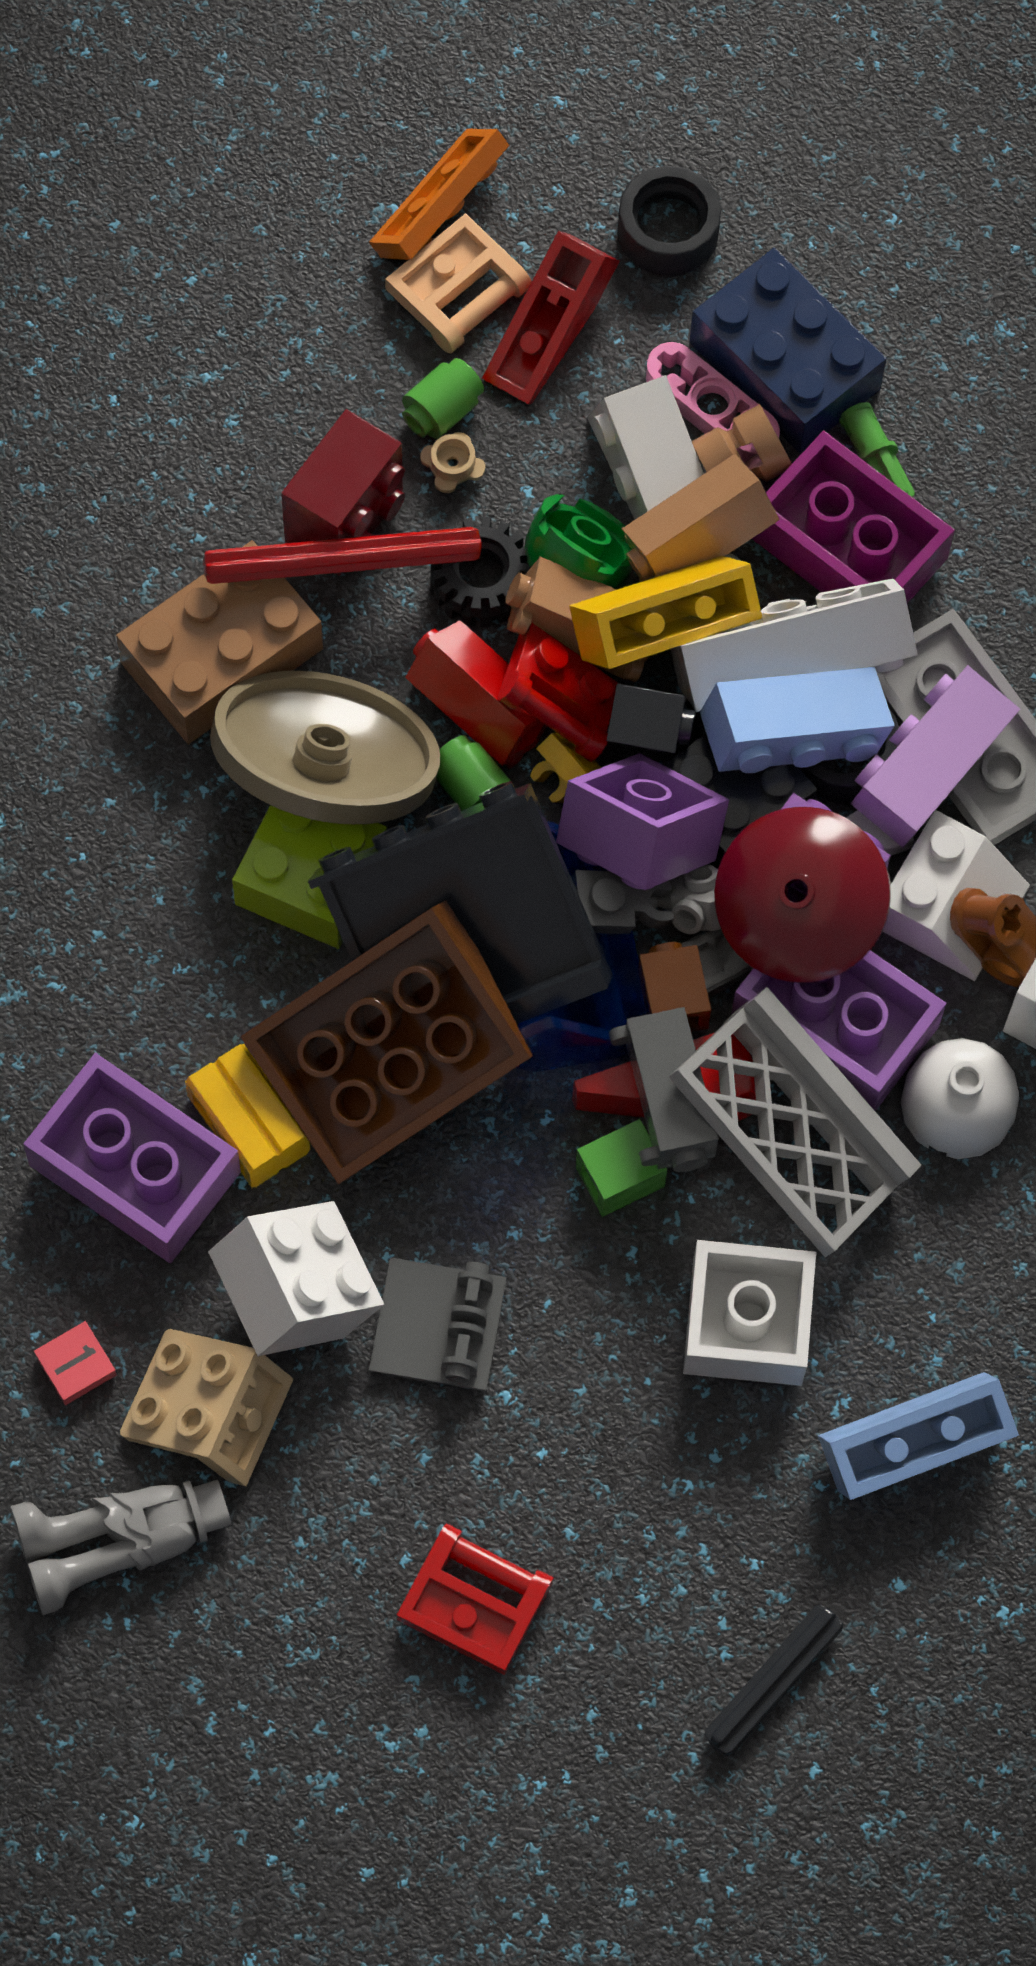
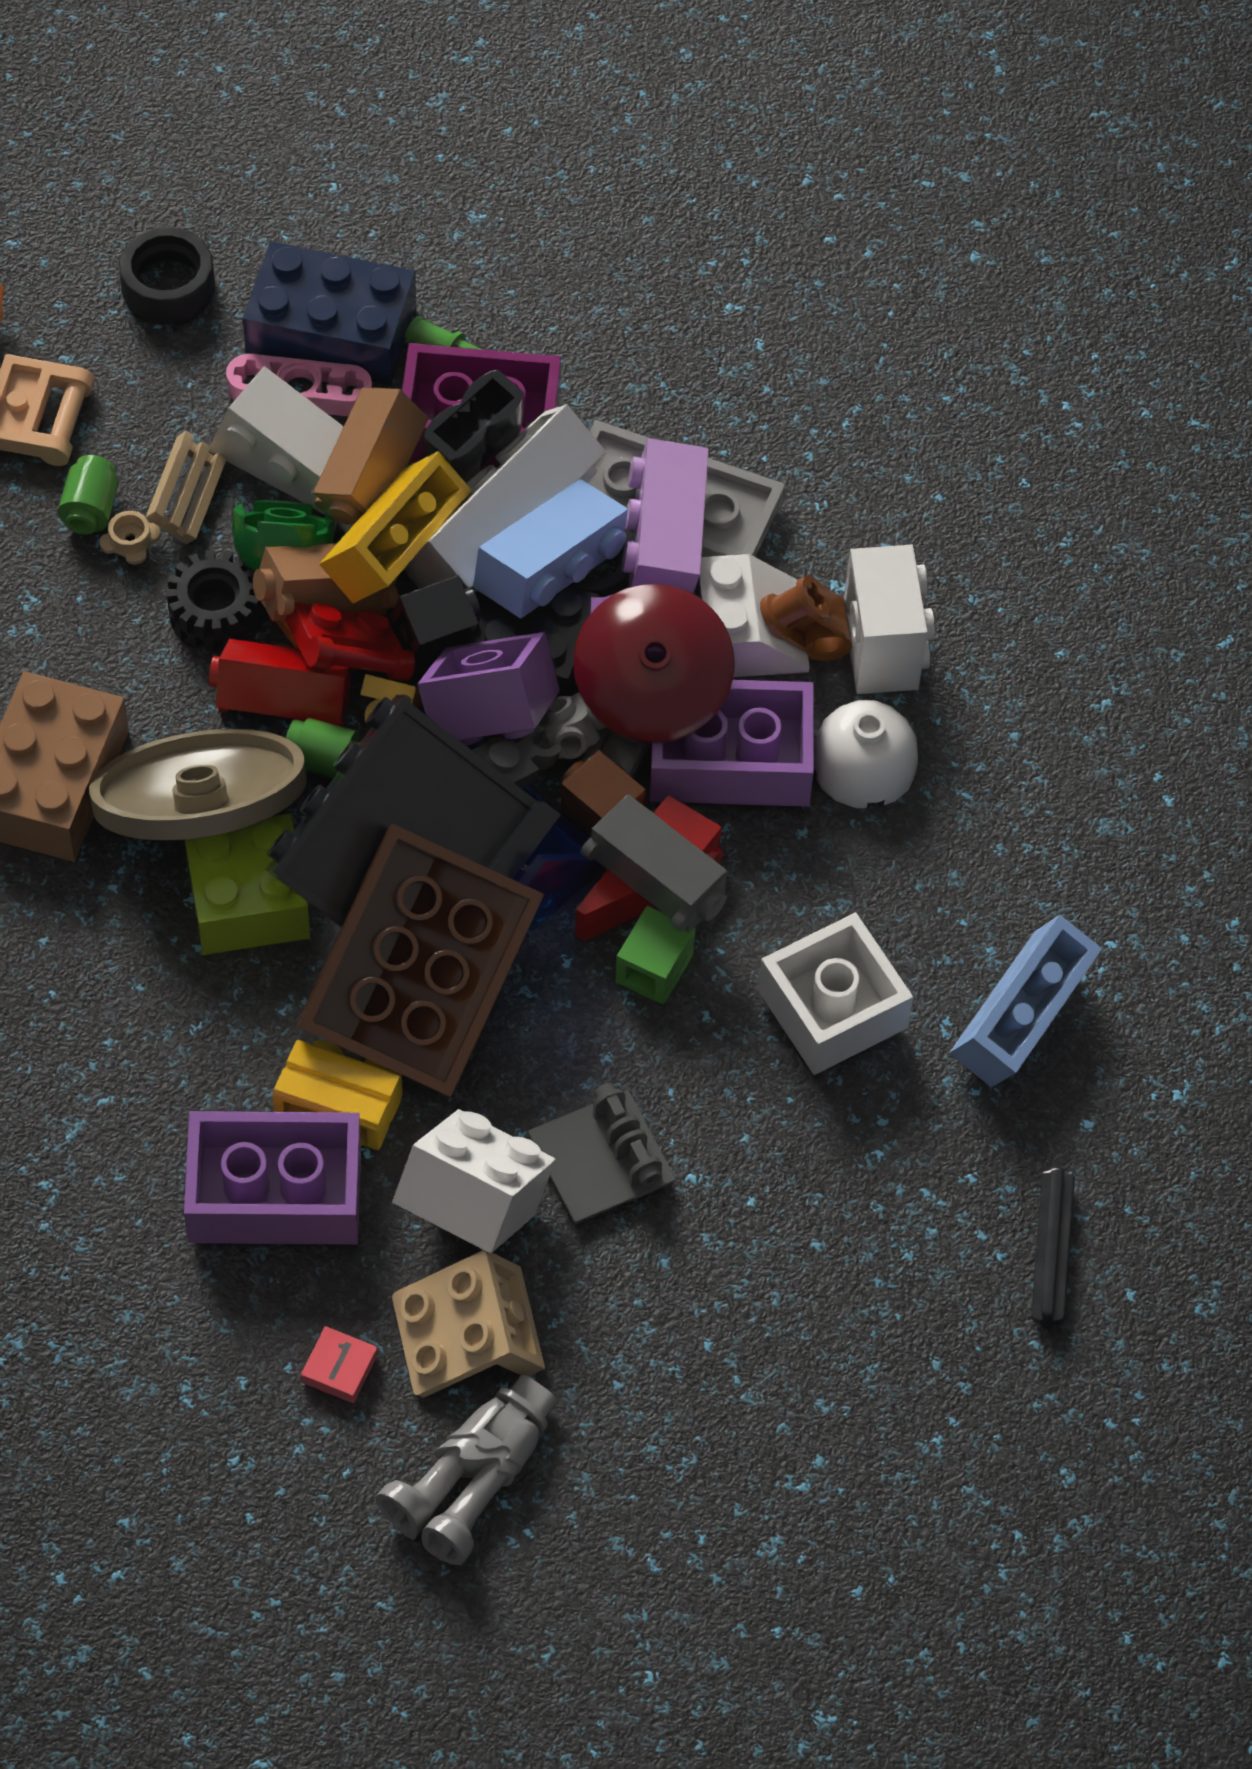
camera: 35 degrees left, 10 degrees down
(341, 555) = (104, 639): red axle -> none
(345, 484) = (70, 598): dark red brick -> none
(466, 1615) = (789, 1349): red plate -> none
(550, 316) = (128, 389): red slope -> none
(570, 420) = (200, 457): none -> tan tile
(746, 429) = (354, 373): medium nougat wheel -> none
(818, 1098) = (760, 804): light grey fence -> none
(821, 556) = (479, 425): none -> black brick

